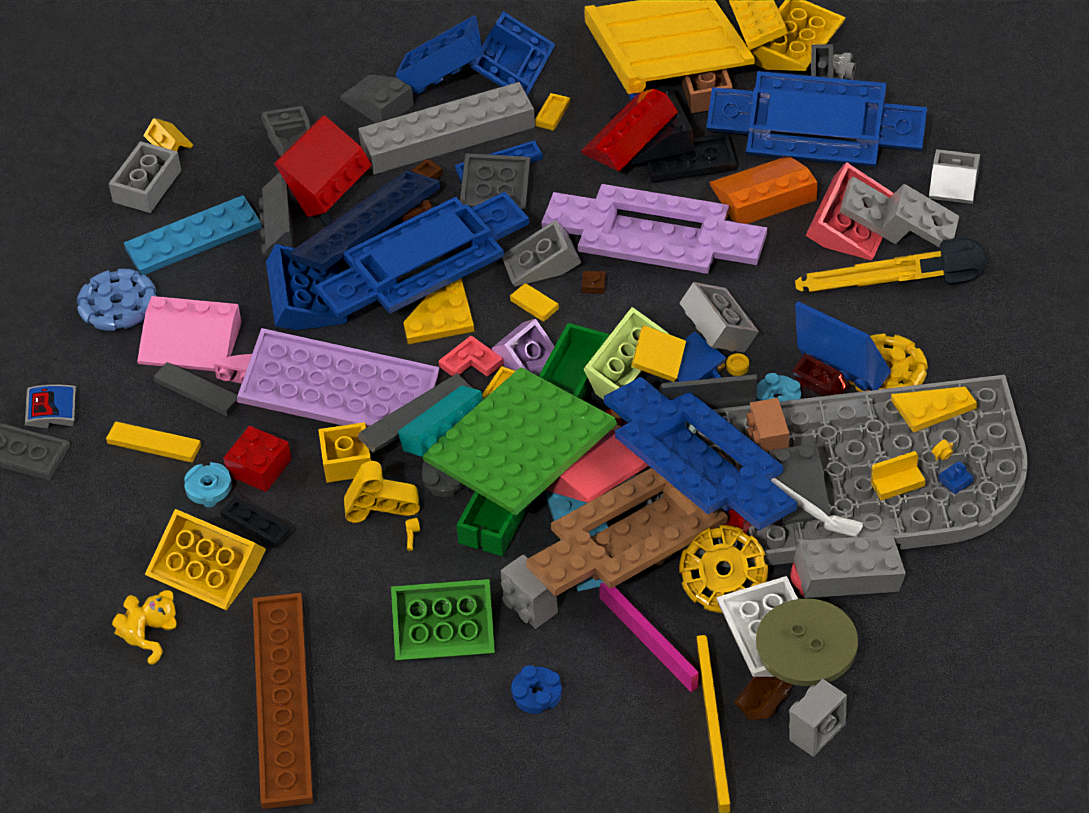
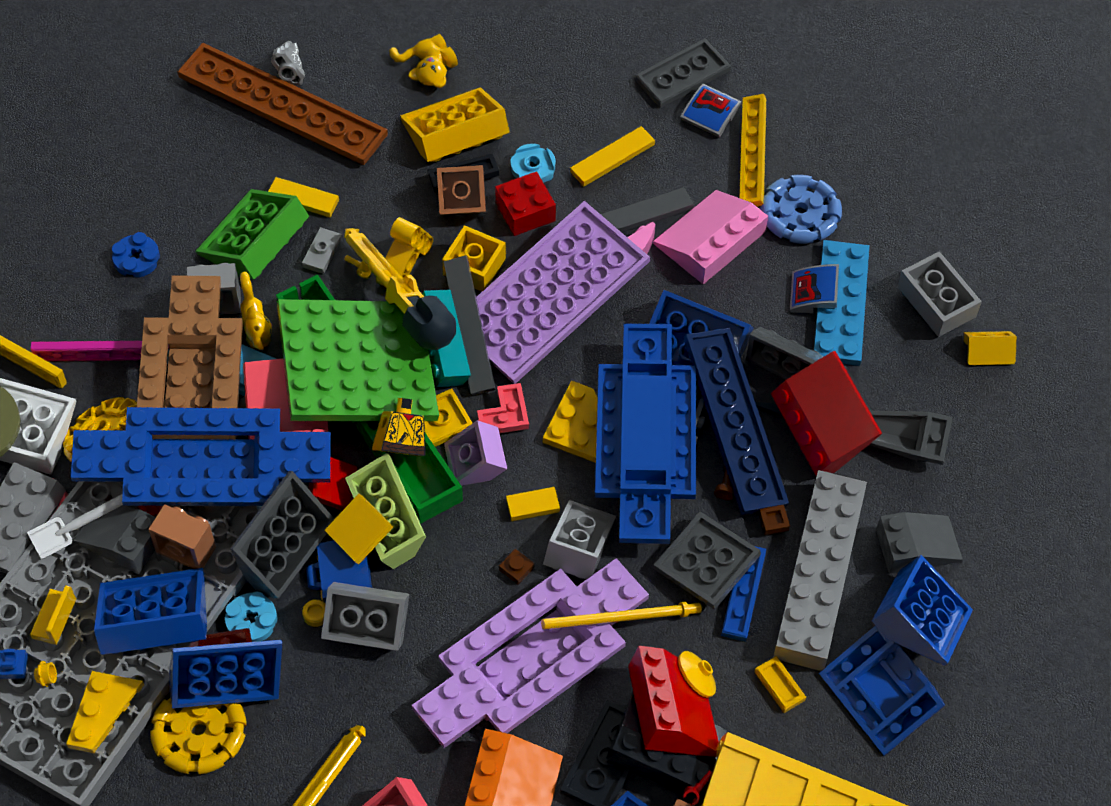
camera: 120 degrees right, 10 degrees up
(77, 354) = (753, 149): none -> yellow plate
(196, 249) = (814, 288): none -> slope
(228, 722) = (288, 63): none -> light grey rock
(284, 495) = (461, 190): none -> nougat brick
(373, 617) = (311, 198): none -> yellow tile
(418, 567) = (321, 250): none -> light grey plate
(449, 406) = (423, 317): none -> piece
(538, 535) = (256, 324): none -> yellow animal
(544, 179) = (682, 609): none -> yellow bar
(552, 369) = (401, 431): none -> torso
(587, 139) = (697, 674): none -> yellow dish
(681, 88) = (697, 788): none -> red hand
(837, 421) = (151, 611): none -> blue slope

